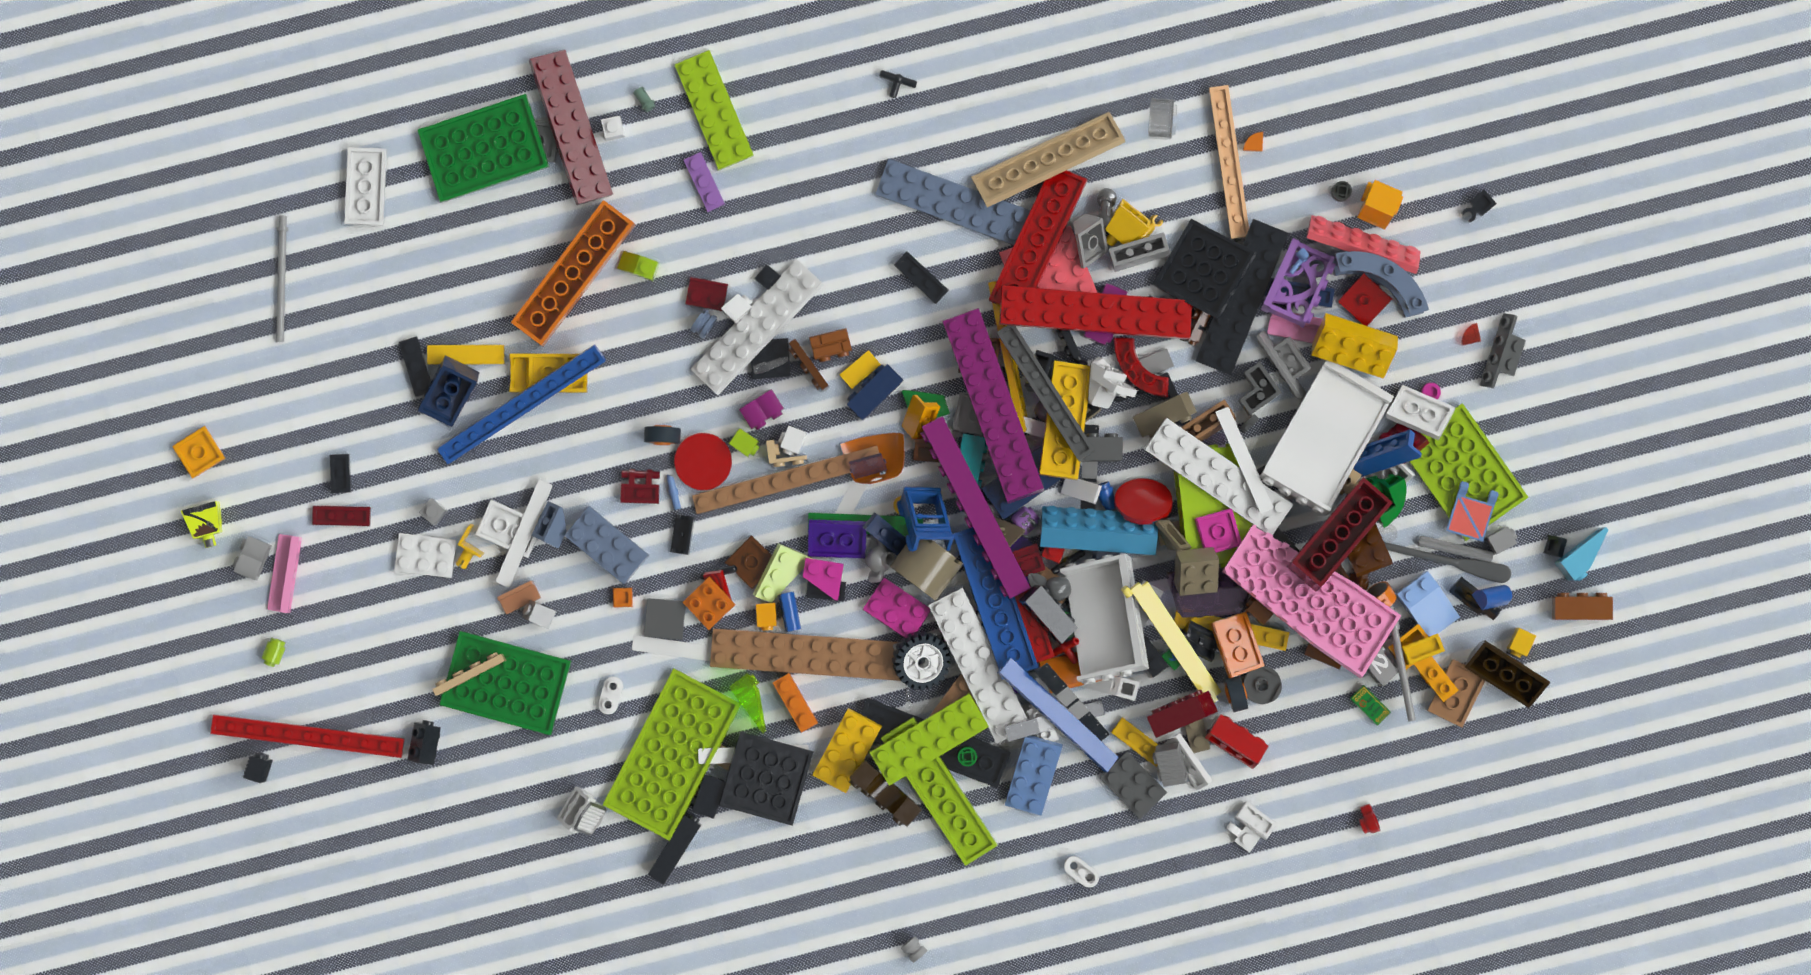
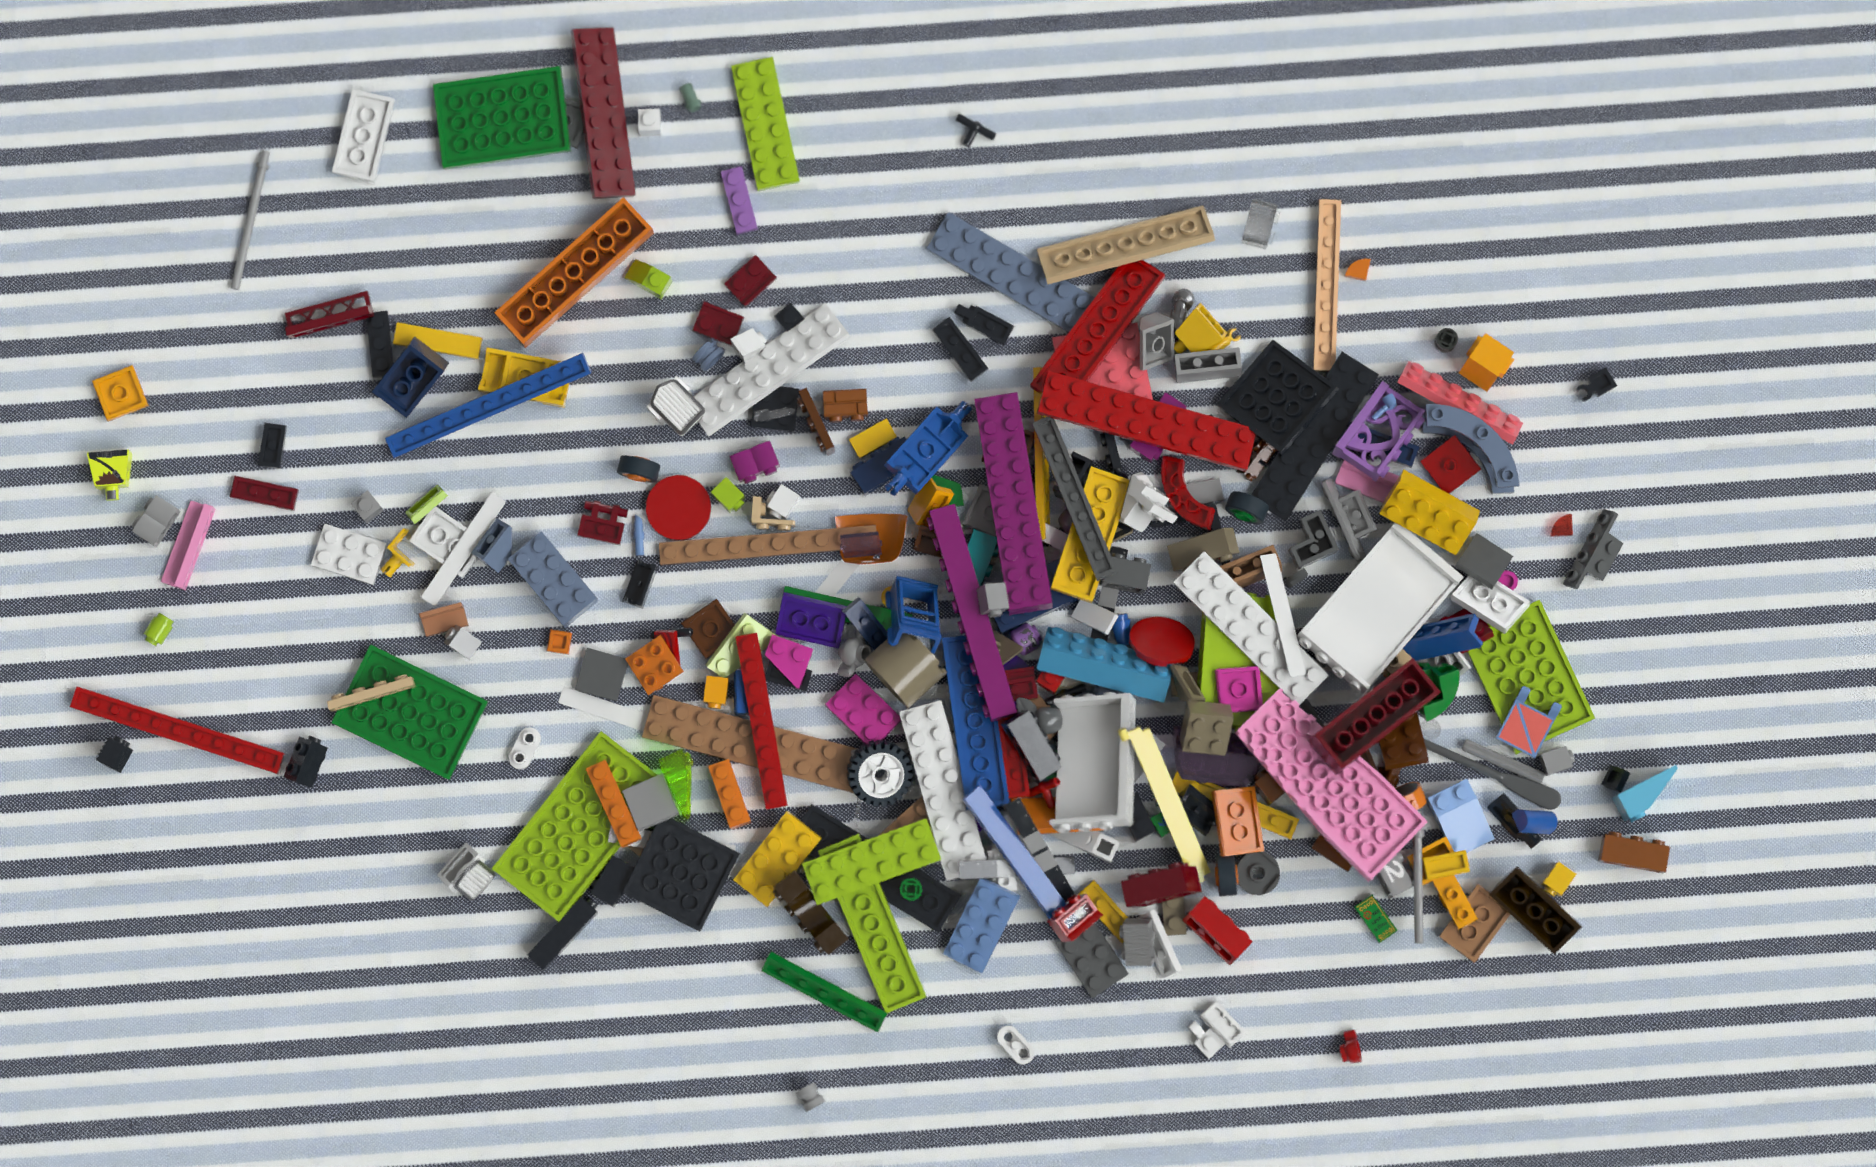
camera: 15 degrees right, 5 degrees down
(367, 356) = (329, 320): none -> dark red fence
(484, 499) = (426, 504): none -> lime tile
(684, 375) = (675, 405): none -> white piece
(697, 730) = (613, 803): none -> orange plate
(727, 251) = (750, 281): none -> dark red plate
(729, 723) = (651, 802): none -> light grey tile
(811, 634) = (761, 721): none -> red plate
(909, 372) = (927, 449): none -> blue plate
(909, 857) = (824, 992): none -> green plate
(938, 250) = (985, 323): none -> black hinge
(991, 494) = (992, 599): none -> light grey brick
(1112, 754) = (1074, 917): none -> window
(1195, 370) = (1246, 507): none -> black wheel
(1408, 378) = (1484, 561): none -> dark grey tile

